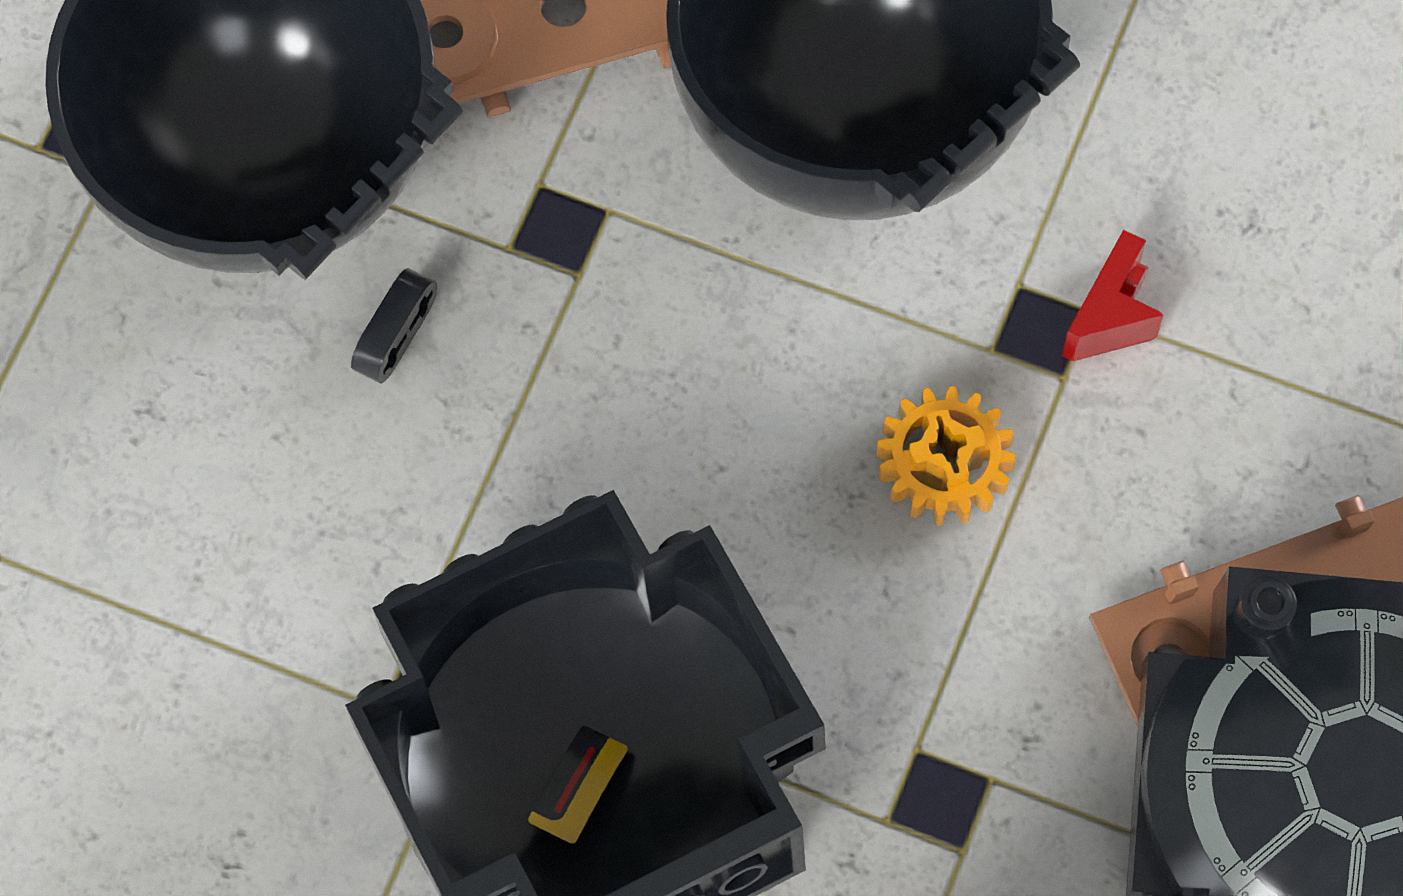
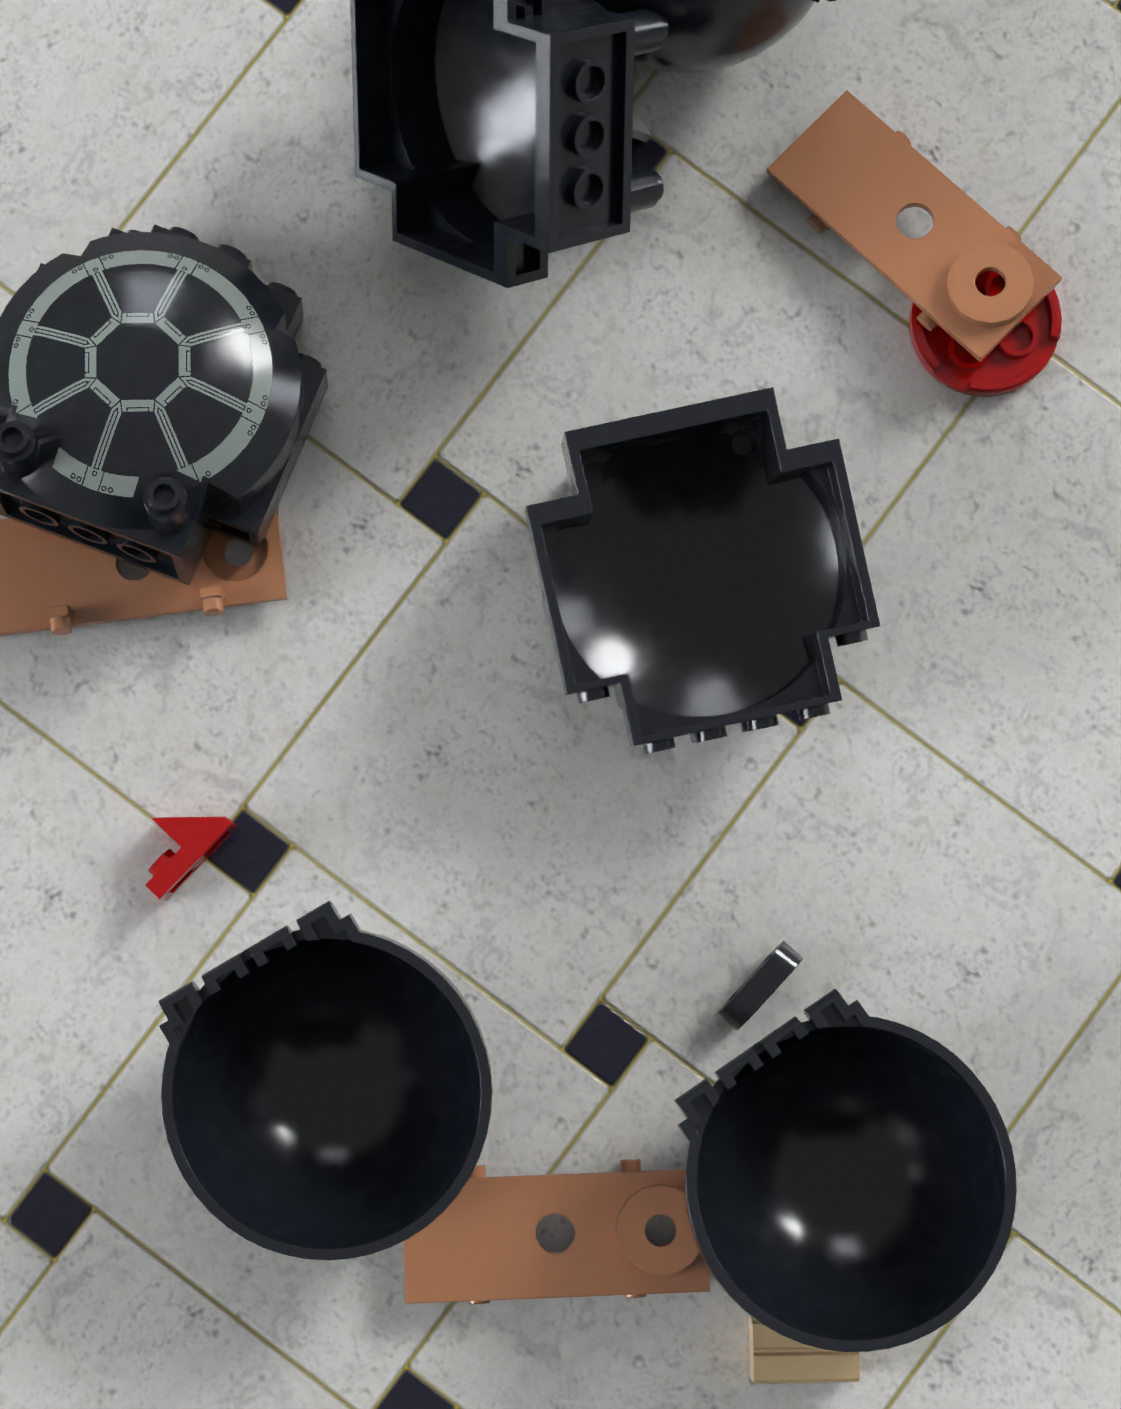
camera: 170 degrees left, 15 degrees up
(577, 784) = (708, 566): sticker -> none
(970, 445) = (333, 757): light orange gear -> none

